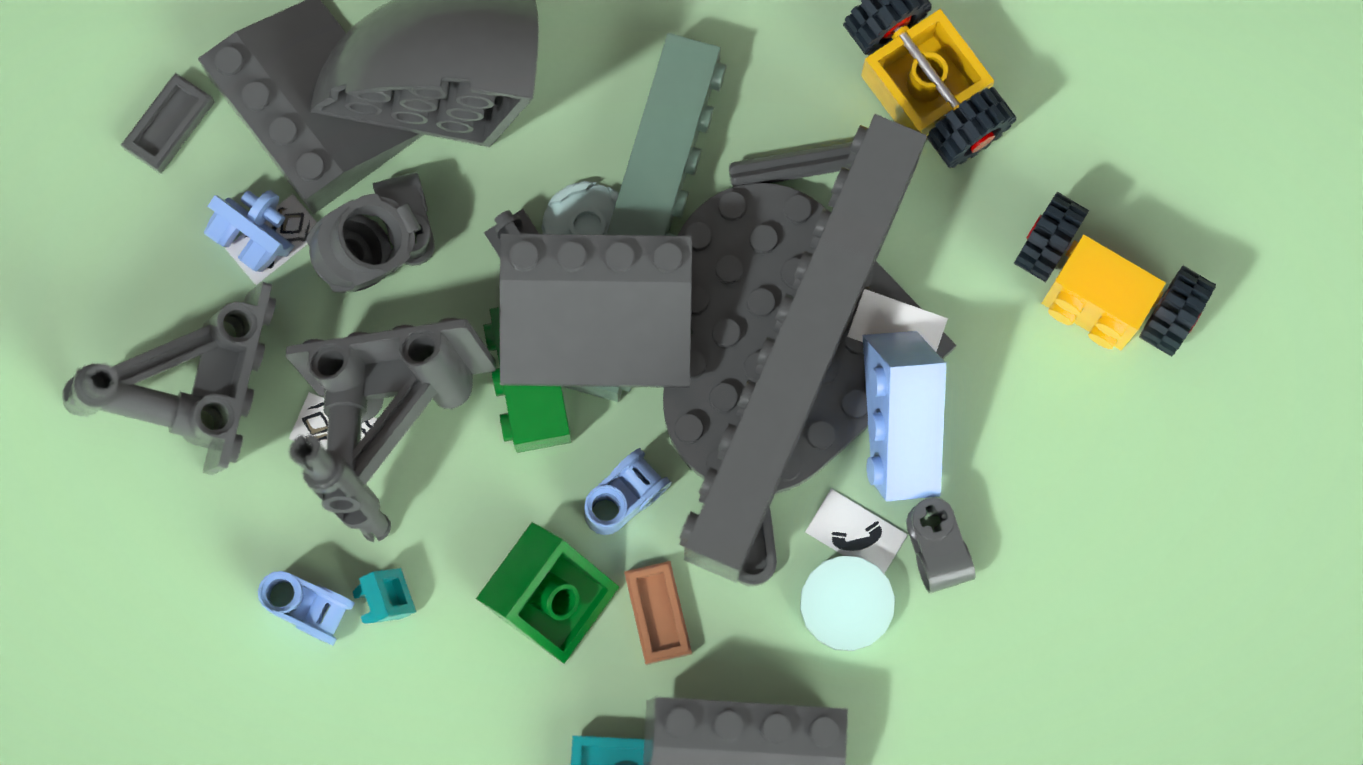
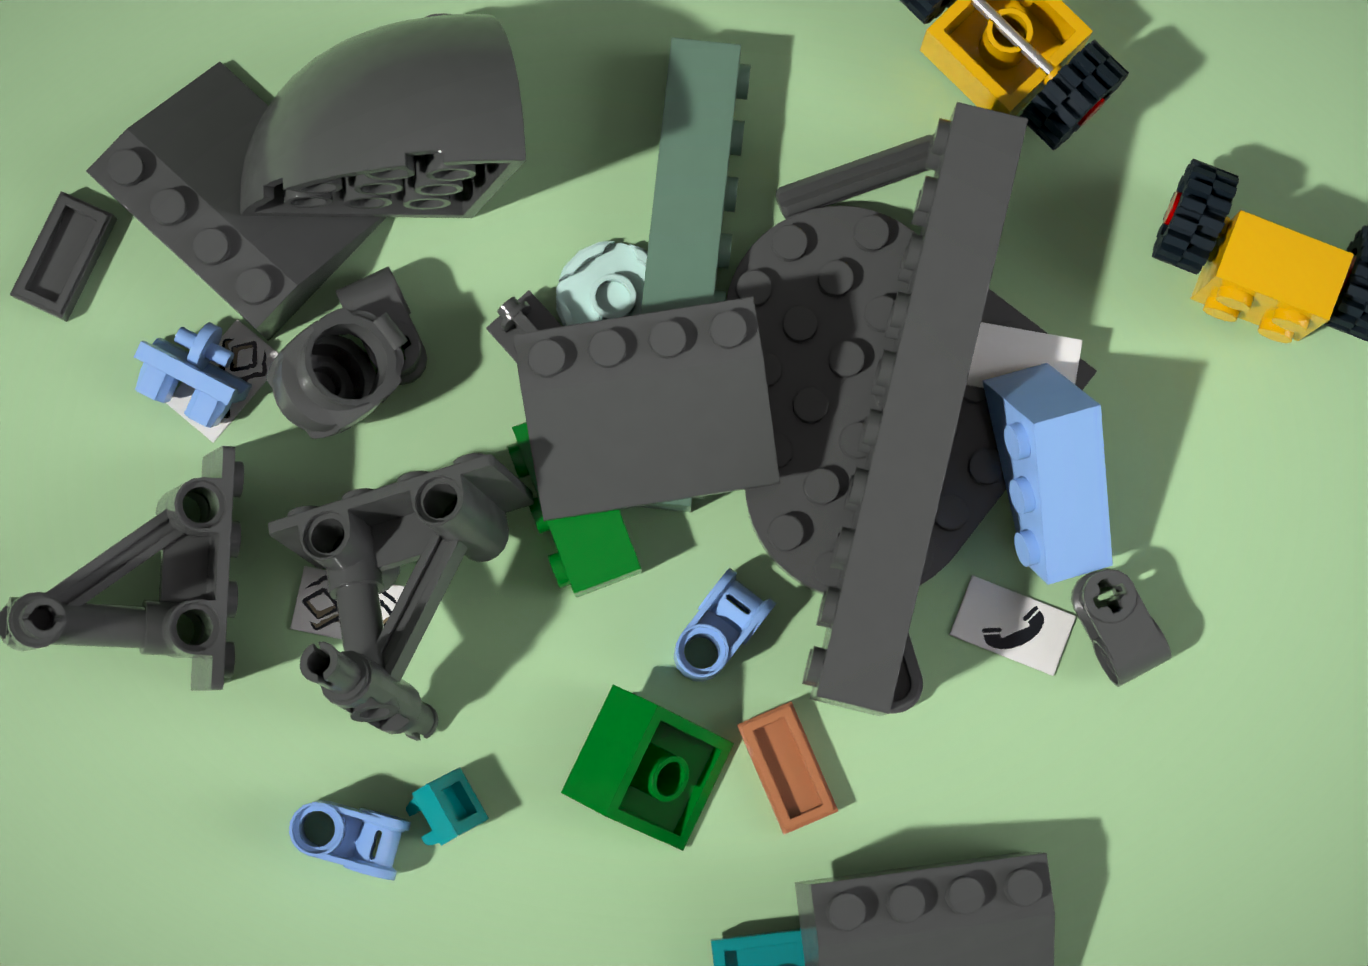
camera: 10 degrees left, 5 degrees up
(847, 603) = (1018, 715): light aqua tile -> none

